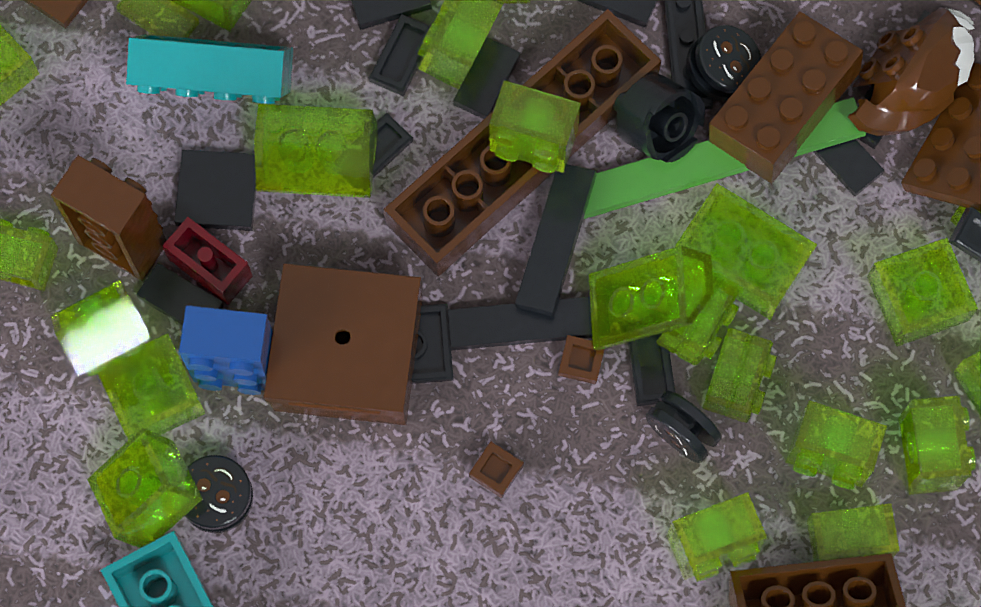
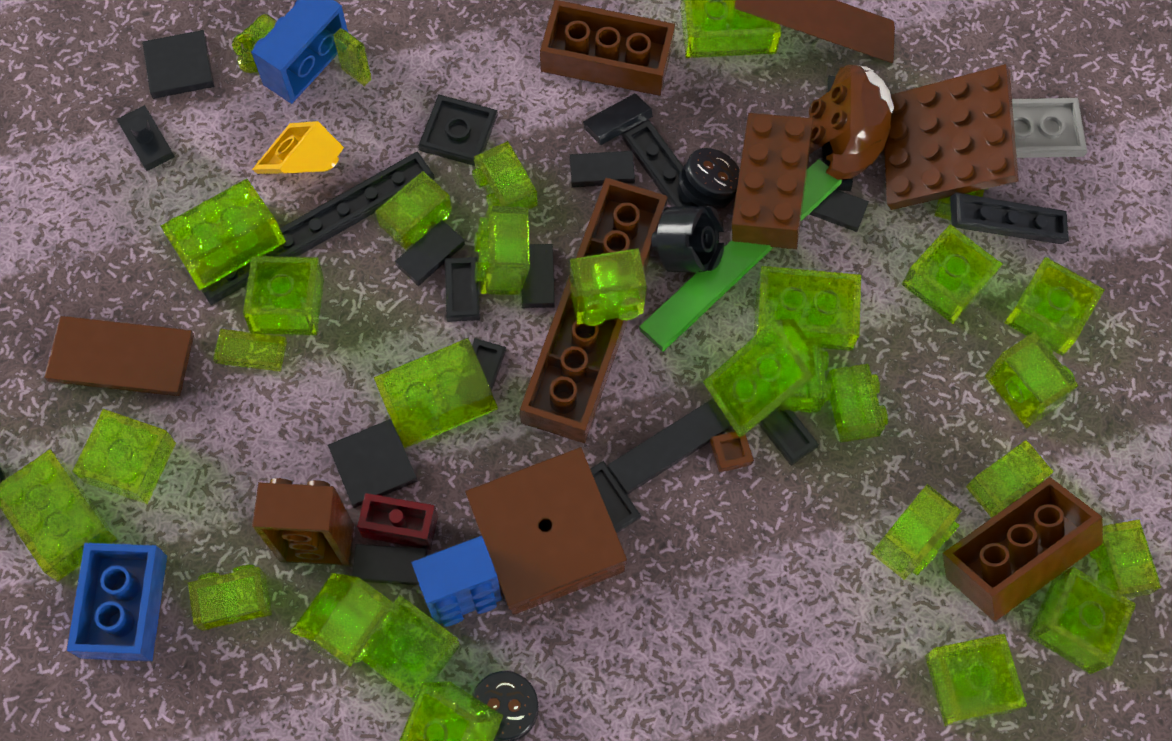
camera: 30 degrees left, 5 degrees down
(209, 66) = (318, 367): teal brick -> none
(496, 469) = (716, 569): reddish brown plate -> none
(555, 240) = (662, 370): black tile -> none
(683, 426) = (840, 461): black head -> none
(835, 445) = (960, 417): clear neon green brick -> none

